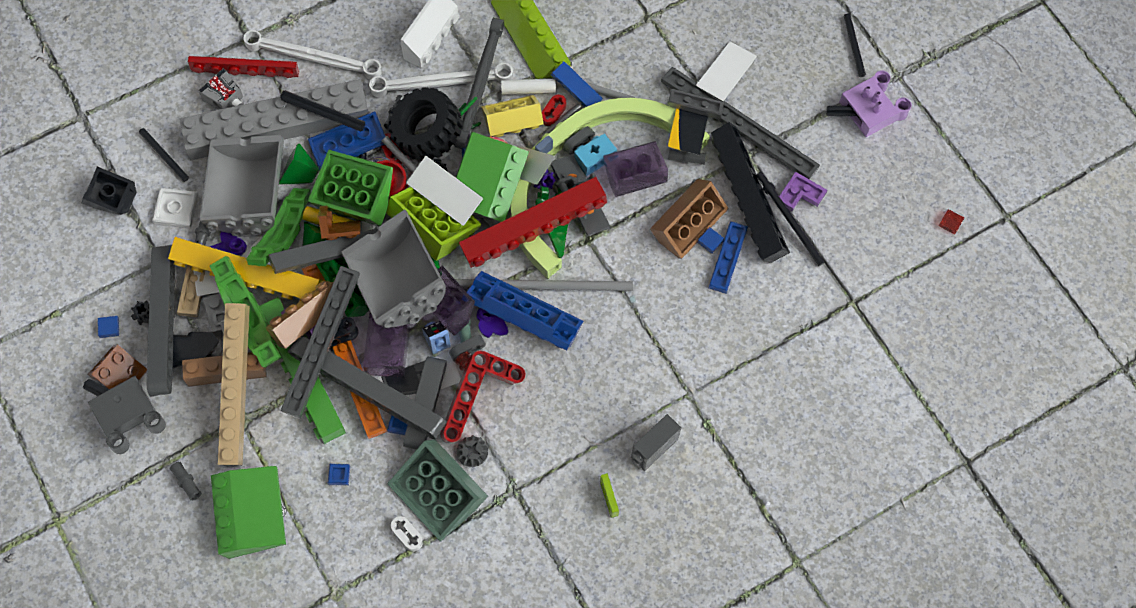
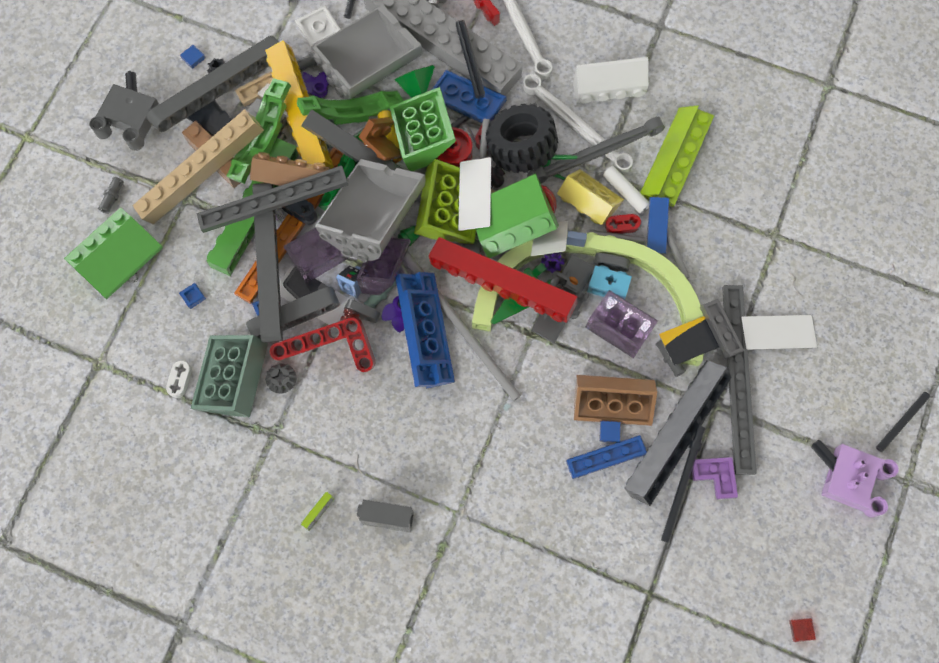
camera: 55 degrees right, 5 degrees up
(116, 368) = (160, 83): dark orange bracket -> none

